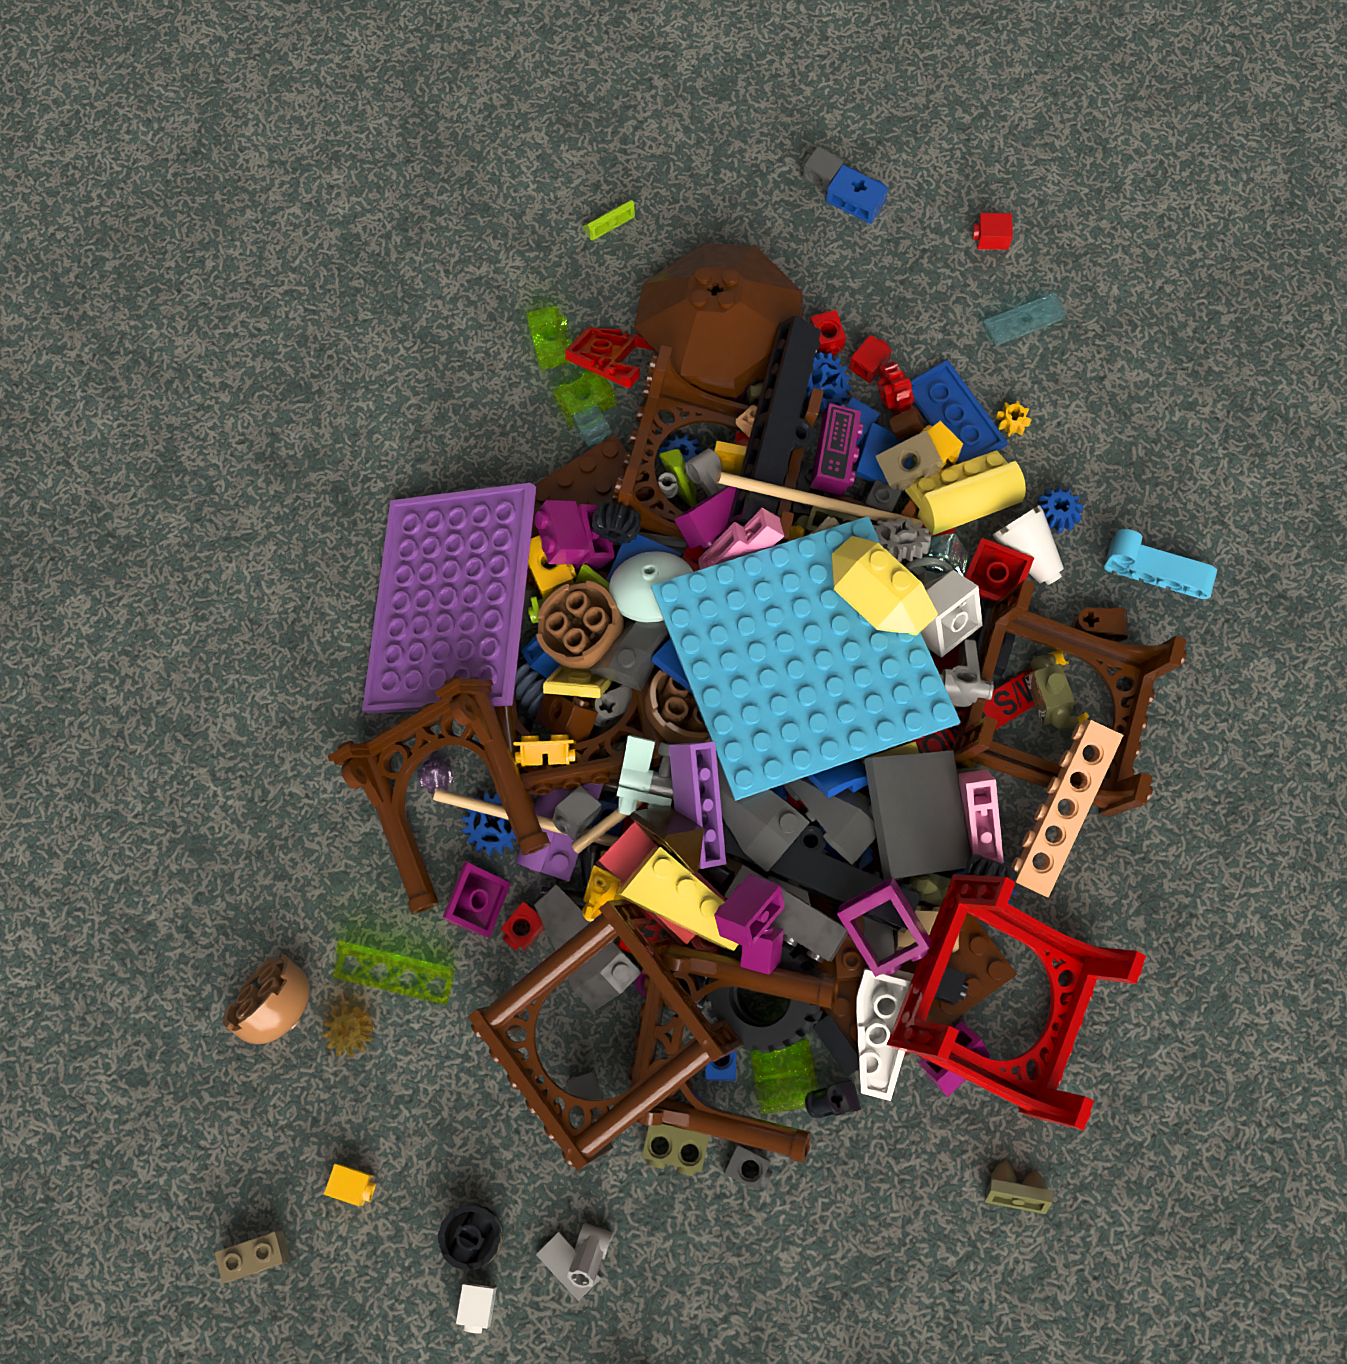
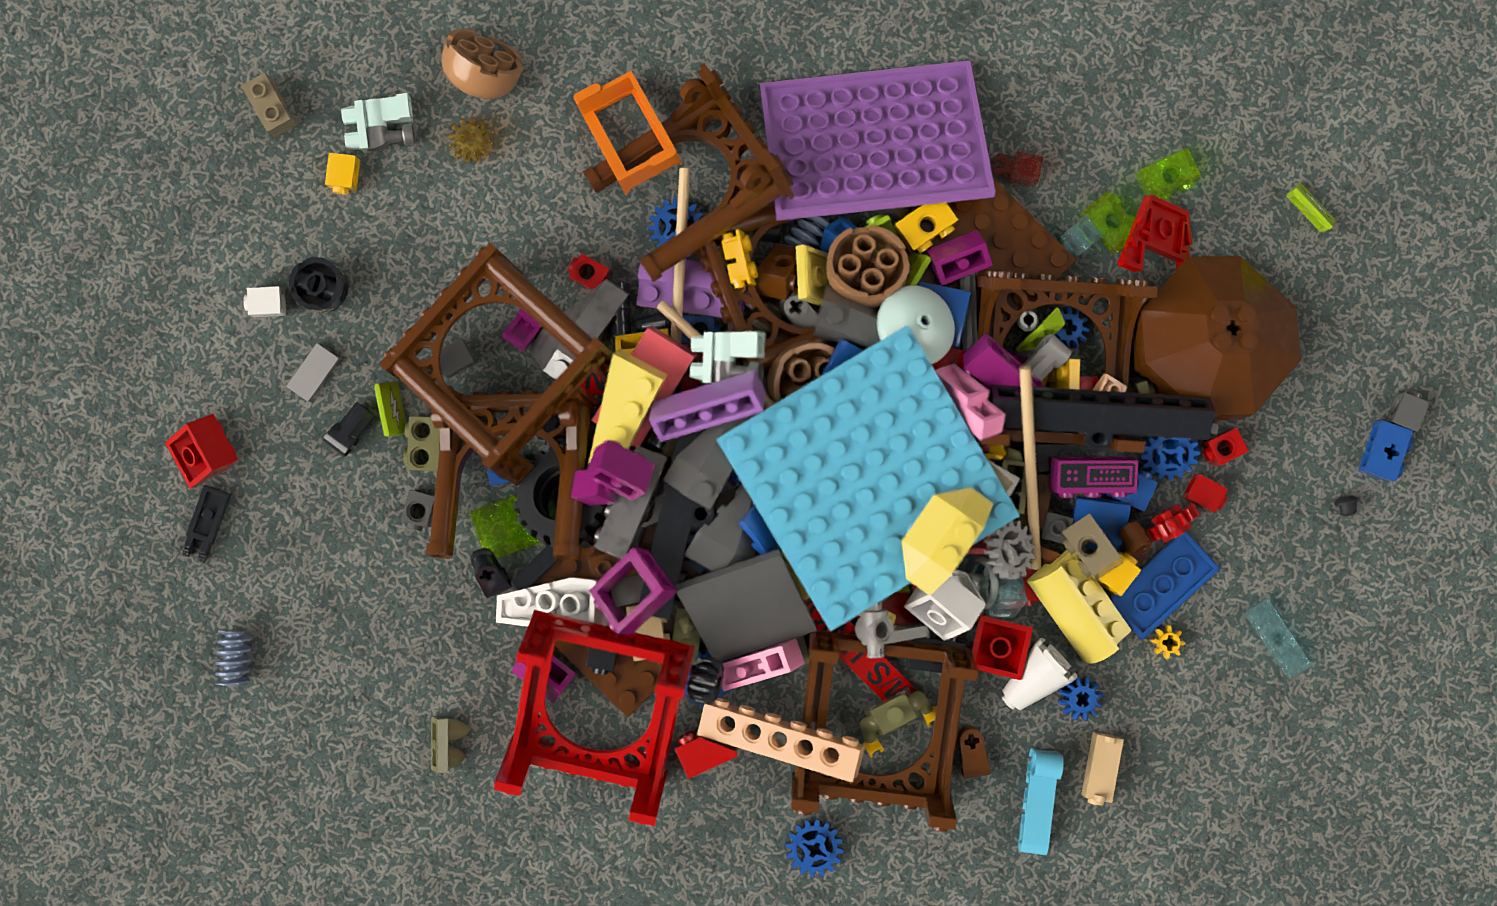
camera: 75 degrees right, 15 degrees up
(298, 1138) = (372, 121): none -> light aqua hips
(336, 882) = (596, 99): none -> orange piece
(404, 963) = (537, 167): clear neon green fence -> none
(435, 775) = (710, 164): clear purple gear -> none
(476, 900) = (604, 226): magenta slope -> none
(511, 466) = (1023, 168): none -> clear red brick
(561, 532) = (955, 230): magenta brick -> none
(567, 1009) = (522, 330): none -> magenta bracket
(576, 813) = (690, 299): dark grey brick -> none
(590, 1250) = (329, 388): light grey piece -> none
(600, 889) = (623, 336): yellow hinge -> none
(616, 522) = (971, 279): black gear -> none
(628, 1180) = (390, 408): none -> lime slope
(646, 1239) = (346, 433): none -> black piece
(673, 833) = (676, 388): dark brown slope -> none
(903, 237) = (1347, 505): none -> black piece
(993, 231) = (1369, 594): red brick -> none
(1069, 899) = (701, 753): none -> red slope
(1133, 501) = (1102, 768): none -> tan brick
(1193, 807) = (829, 856): none -> blue gear

